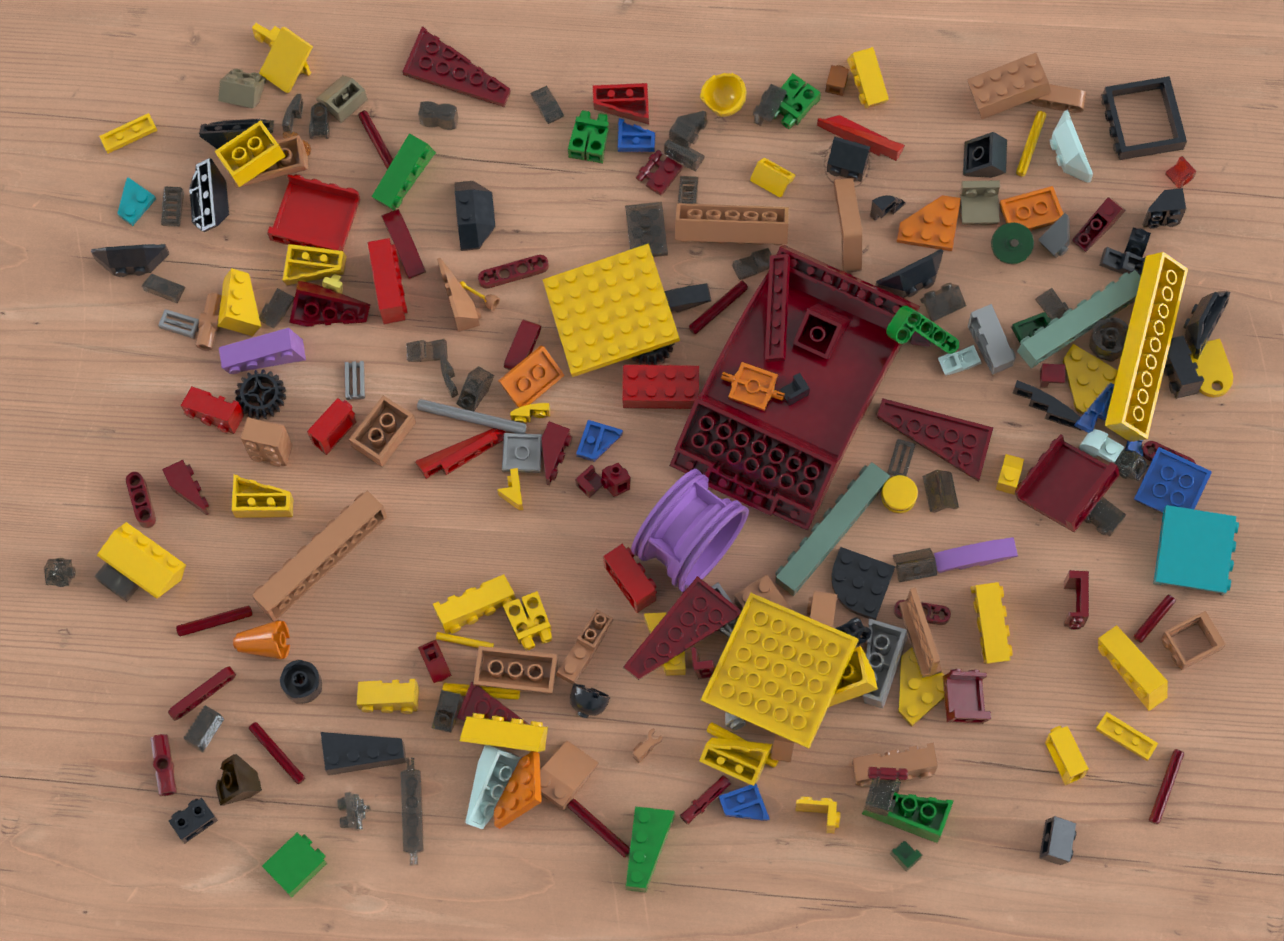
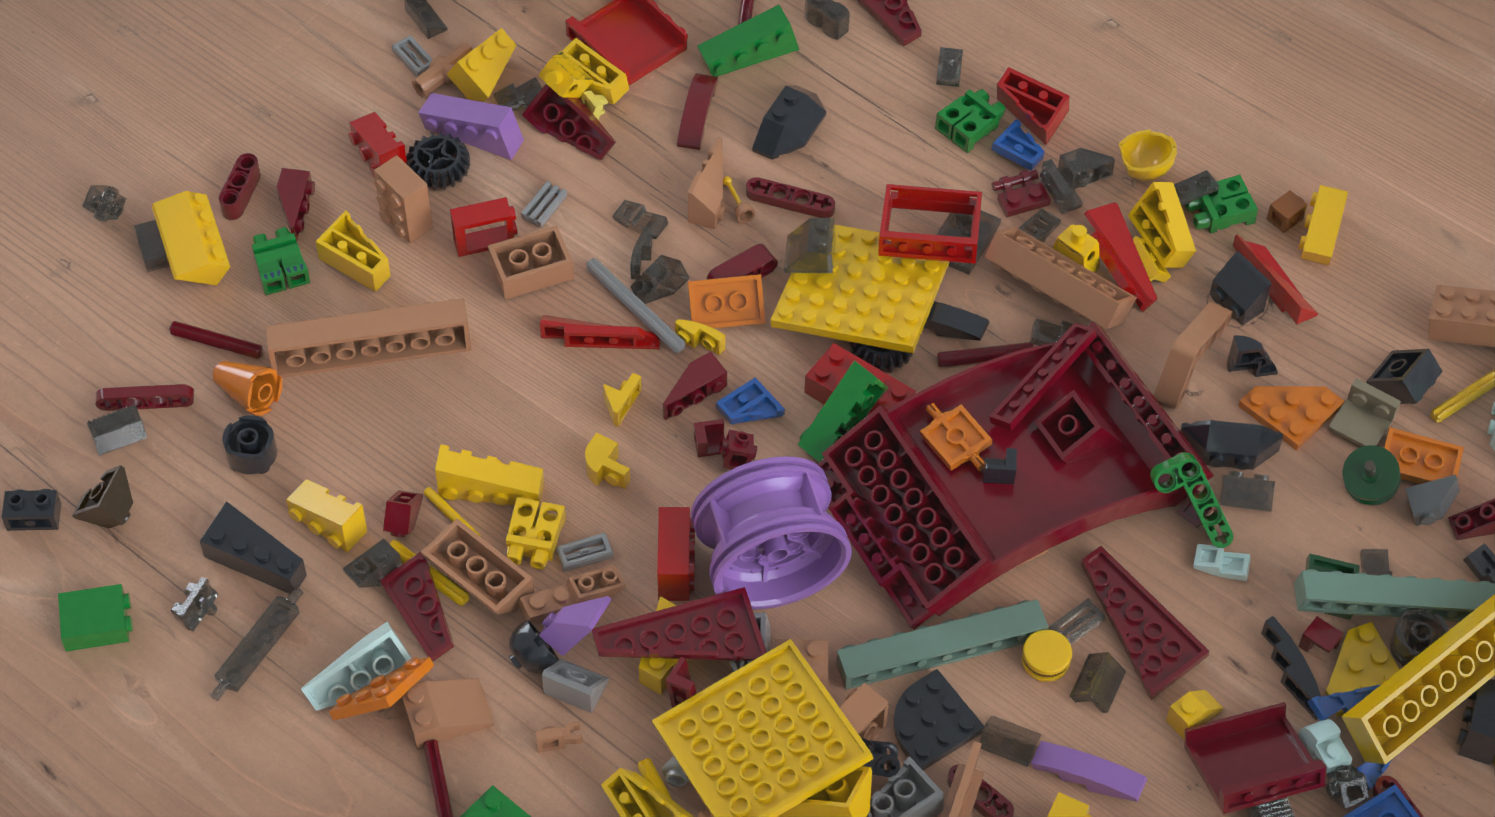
camera: 30 degrees right, 15 degrees down
(162, 753) = (43, 448): dark red piece -> none
(207, 534) = (278, 253): none -> green hips
(277, 753) = (170, 501): dark red axle -> none
(304, 280) = (563, 74): none -> yellow torso
(387, 280) = (649, 128): red brick -> none
(504, 733) = (413, 621): yellow slope -> none
(522, 452) = (659, 368): light grey plate -> none
(533, 545) = (601, 462): none -> yellow brick
(552, 620) = (586, 555): none -> light grey tile
(560, 304) = (811, 247): none -> clear smoke slope
(606, 668) = (572, 623): none -> medium lavender slope
(630, 703) = (574, 684): none -> light grey slope
(636, 258) = (927, 245): none -> red window
(667, 415) = (843, 410): none -> green wedge
(727, 193) = (1079, 247): none -> yellow torso
(755, 180) = (1120, 253): none -> red wedge
(770, 143) = (1163, 225): none -> yellow wedge
(991, 339) = (1273, 557): light grey wedge -> none

